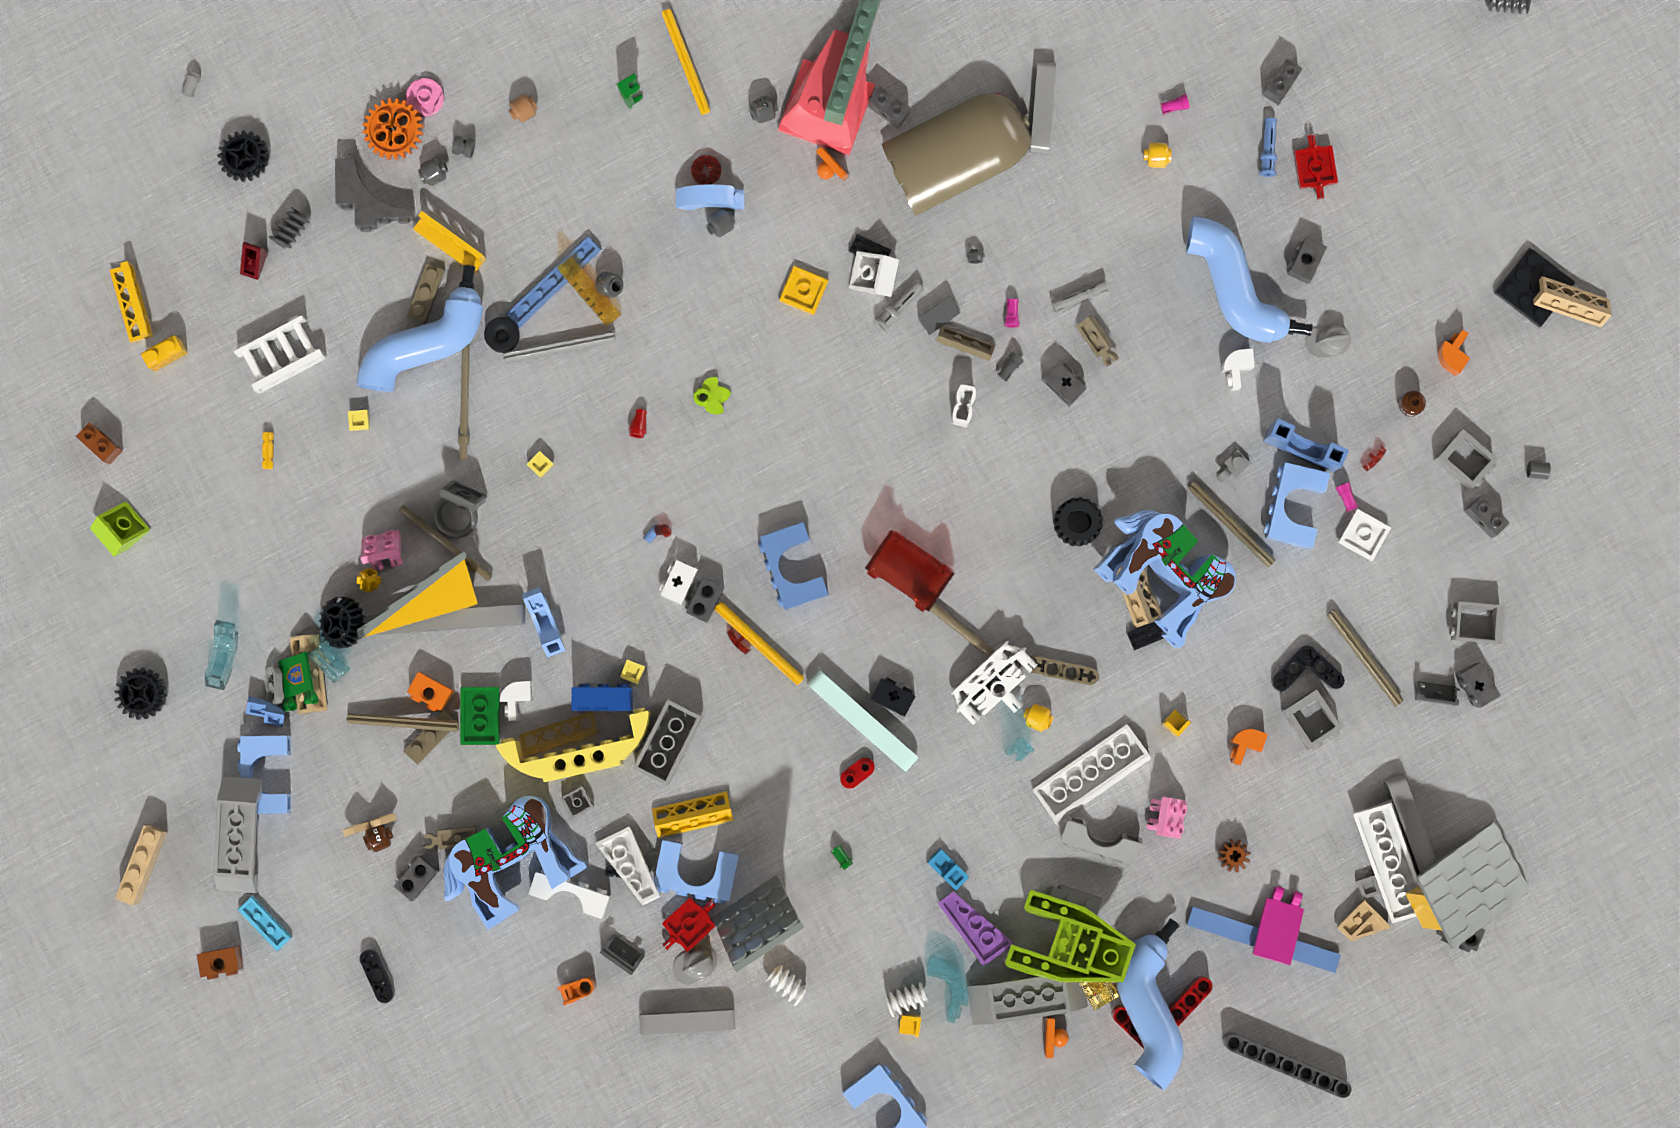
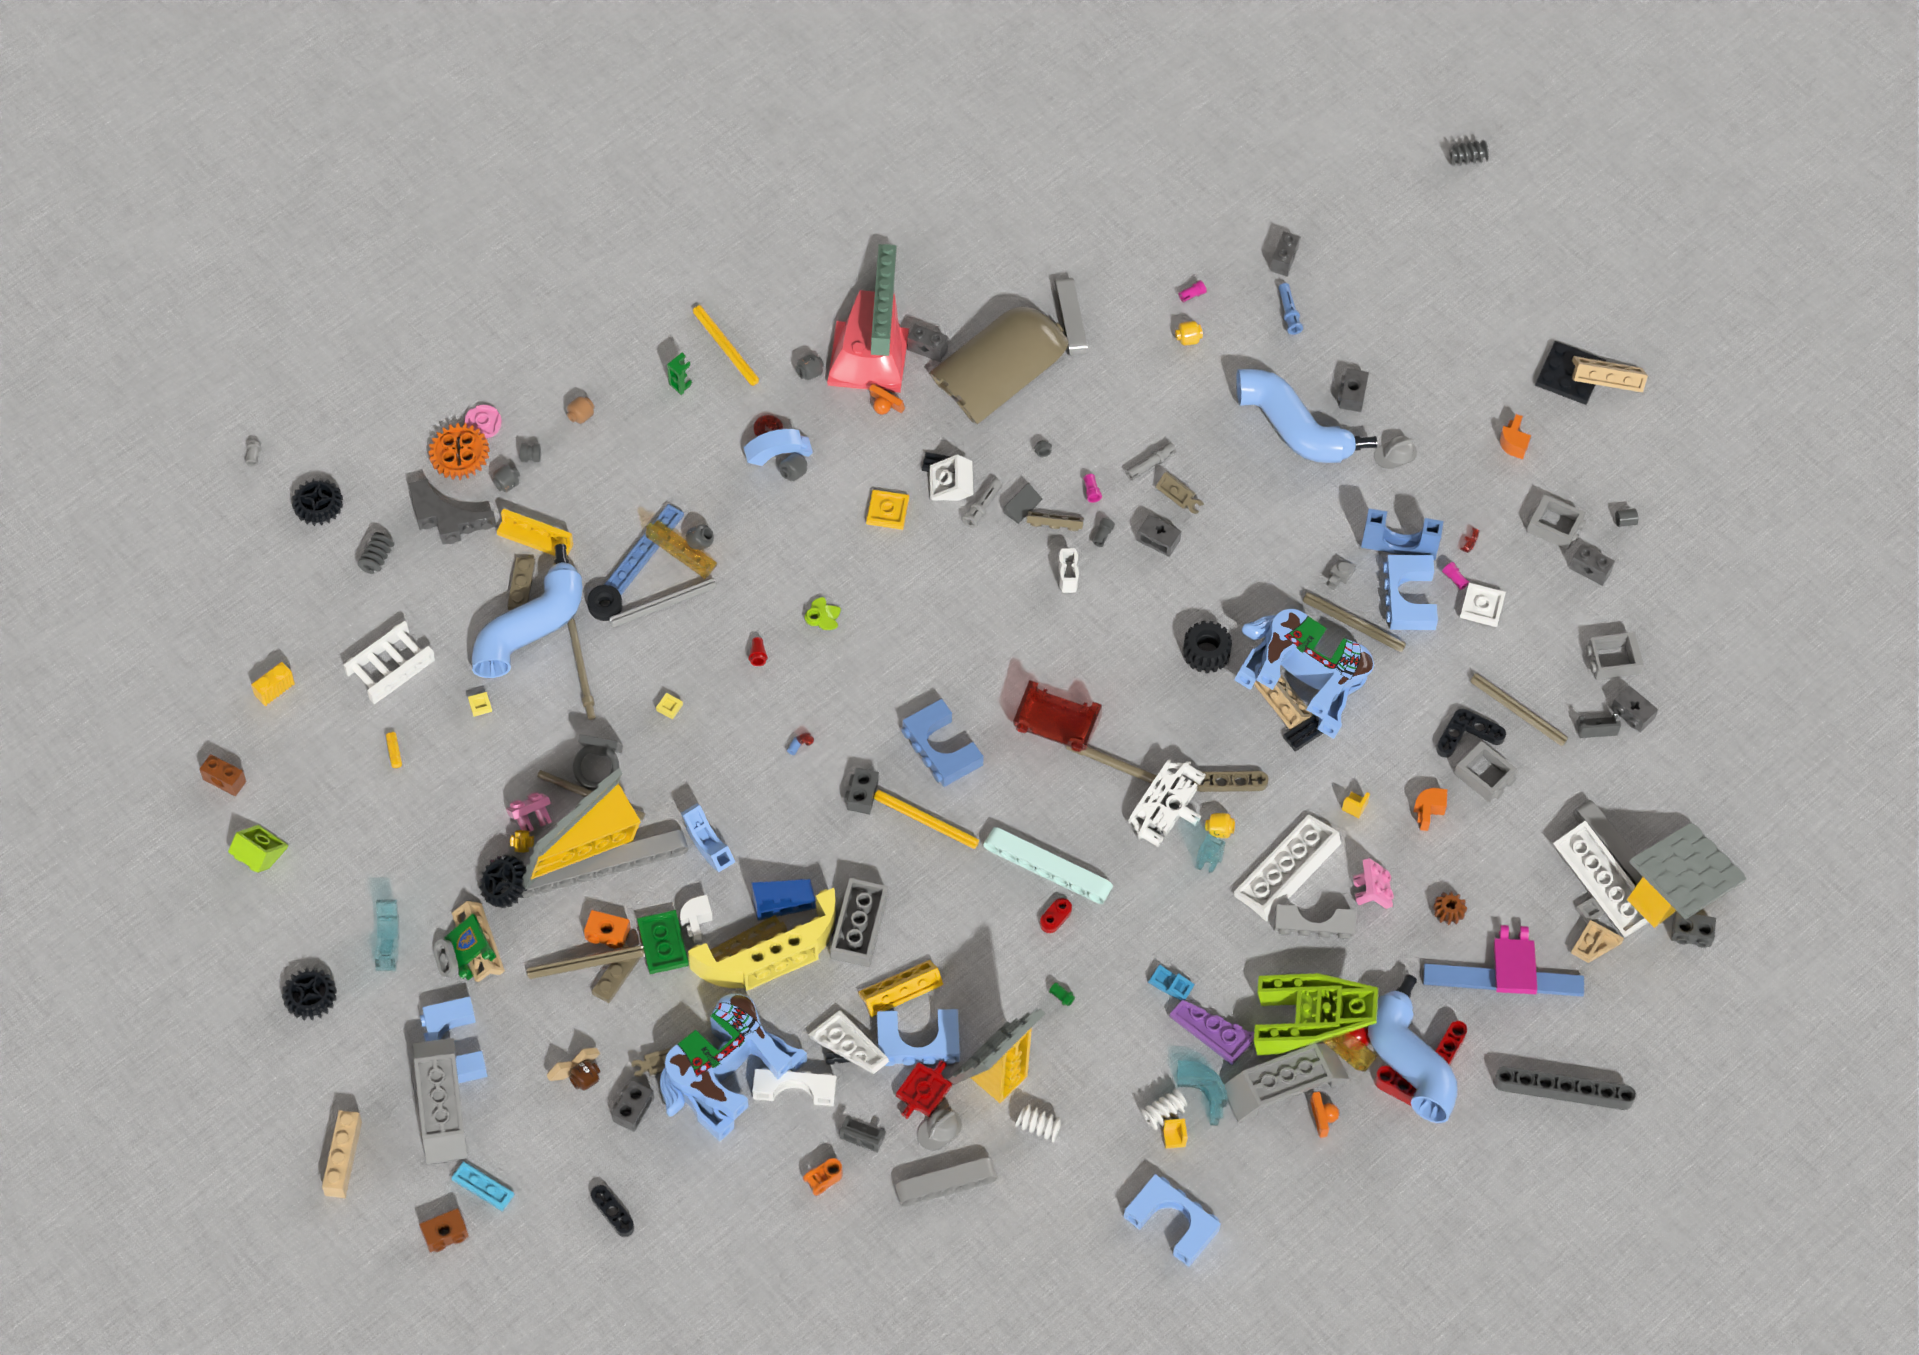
camera: 15 degrees left, 25 degrees down
(135, 301) = (234, 641): yellow fence -> none
(252, 260) = (344, 585): dark red slope -> none
(272, 714) = (445, 982): medium blue slope -> none
(328, 662) = (497, 923): clear light blue hinge -> none
(577, 802) = (781, 1001): light grey piece -> none
(632, 672) = (807, 869): light yellow plate -> none
(679, 593) = (832, 790): white brick -> none
(736, 642) = (905, 824): clear red piece -> none
(899, 706) = (1079, 844): black brick -> none
(1237, 361) = (1316, 486): white brick -> none
(1315, 167) = (1337, 315): red plate -> none
(1412, 403) = (1490, 485): reddish brown head -> none

